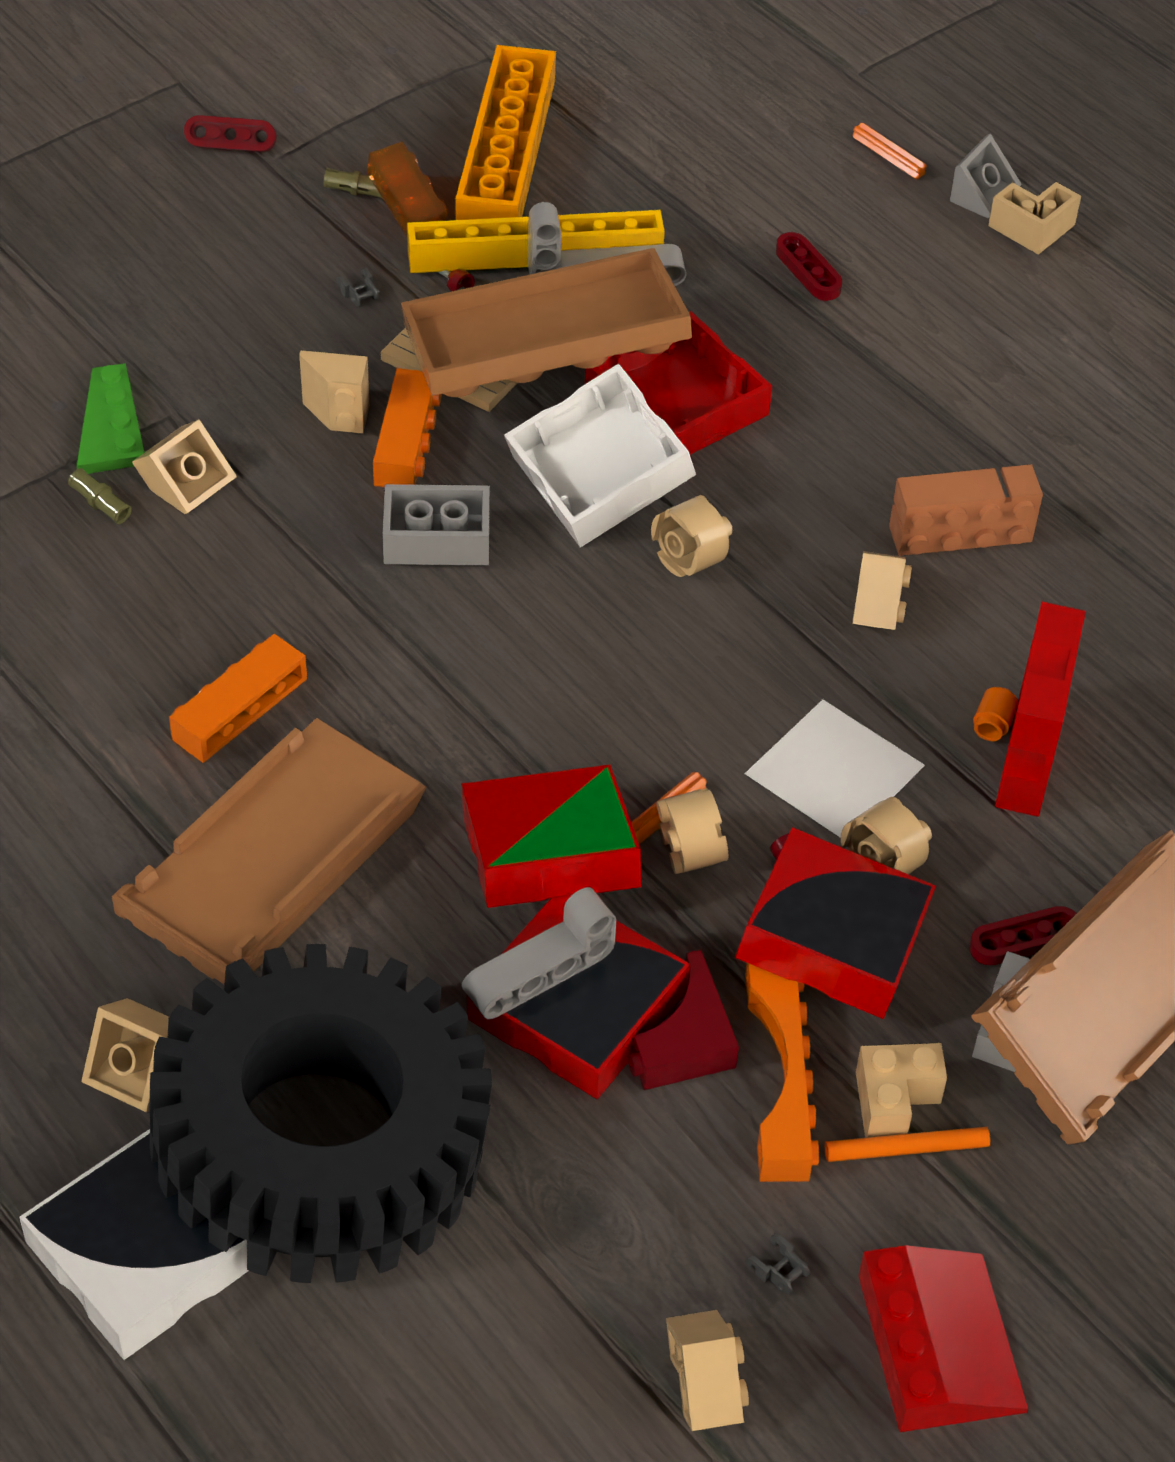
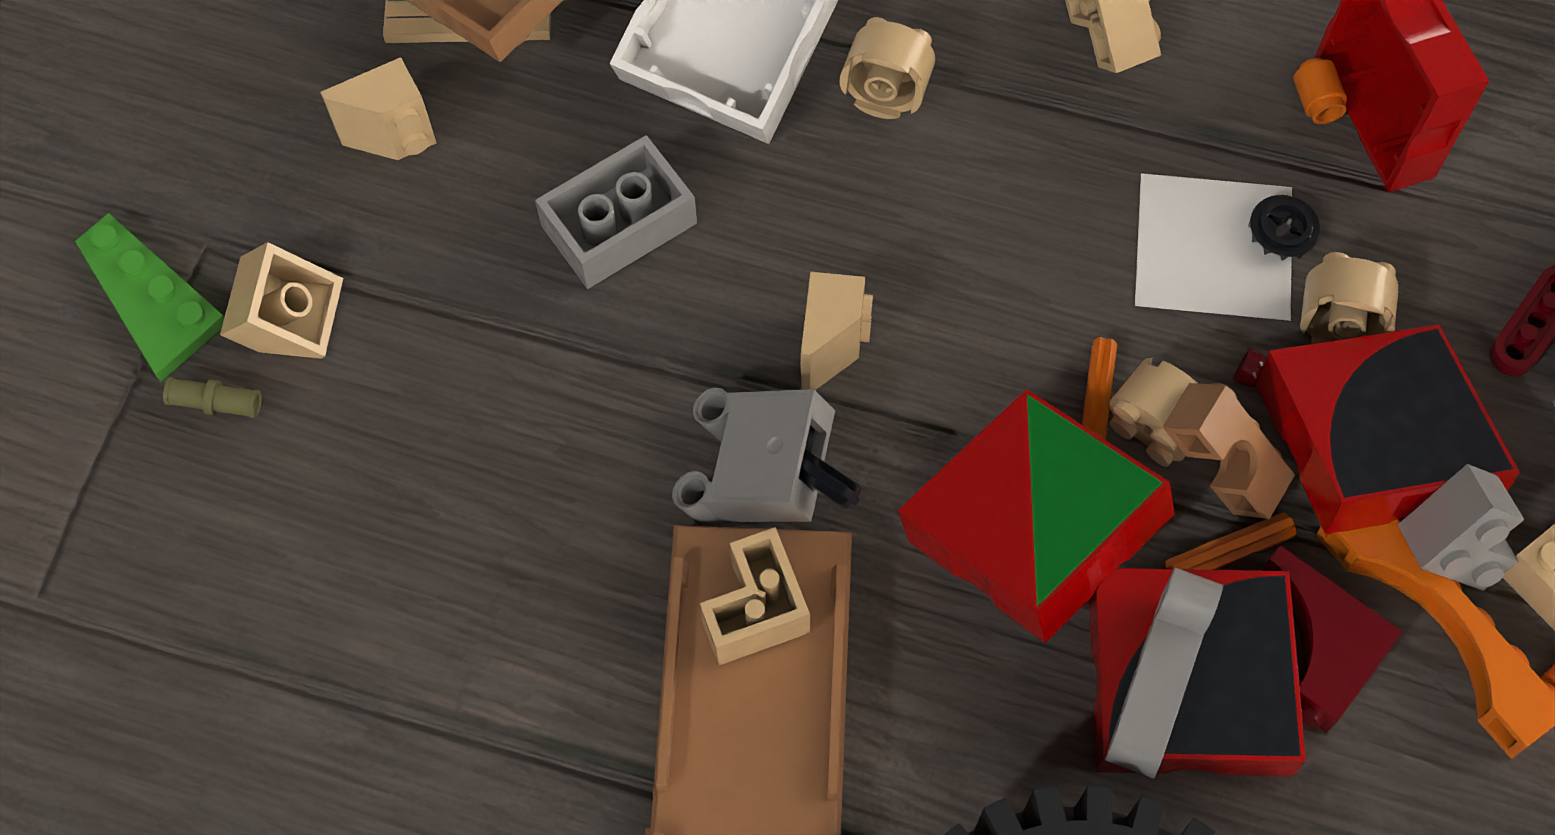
camera: 30 degrees left, 15 degrees up
(238, 697) = (567, 552): orange brick -> none
(323, 780) = (766, 607): none -> tan brick
(402, 707) = (766, 459): none -> light grey piece
(405, 430) = (488, 116): orange brick -> none
(511, 662) = (834, 326): none -> tan slope
(680, 944) = (1236, 545): none -> orange axle
(725, 900) = (1215, 426): none -> medium nougat arch
(826, 1007) = (1465, 529): none -> light grey brick
(898, 771) = (1272, 213): none -> black gear

